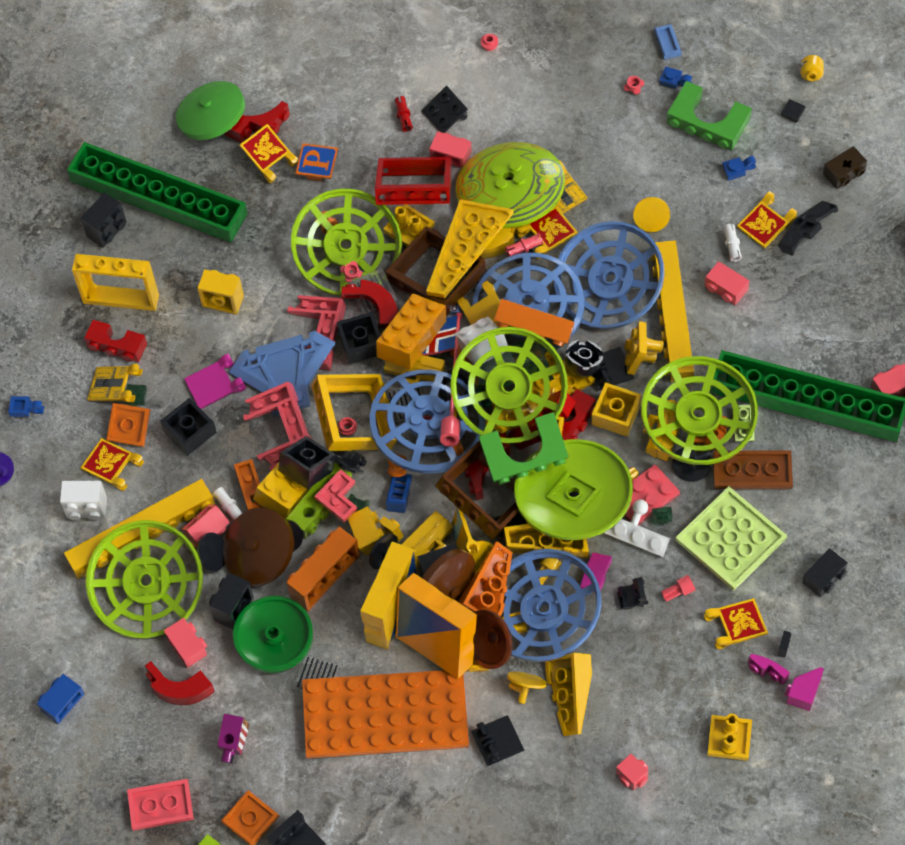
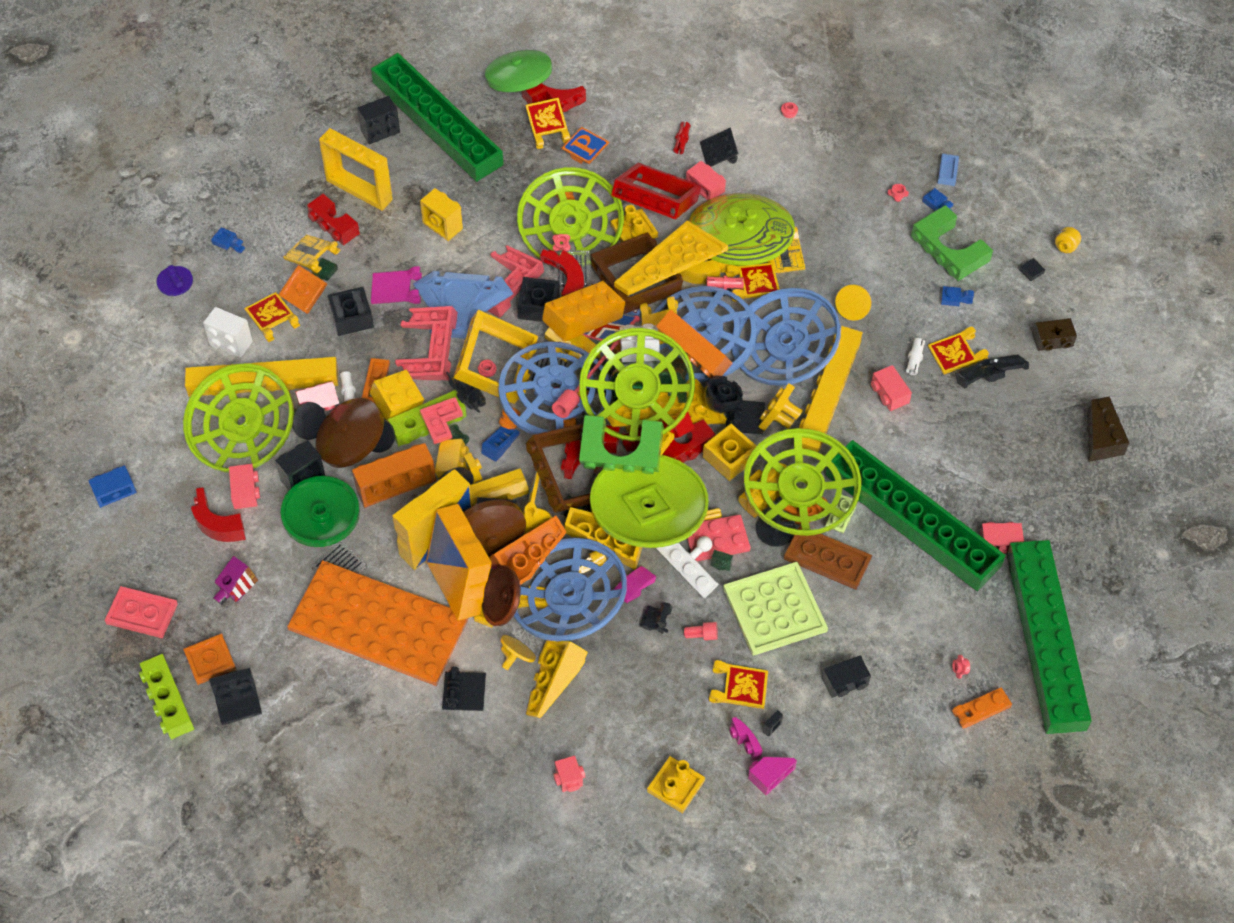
camera: 20 degrees right, 5 degrees down
(306, 462) = (428, 378): black brick -> none

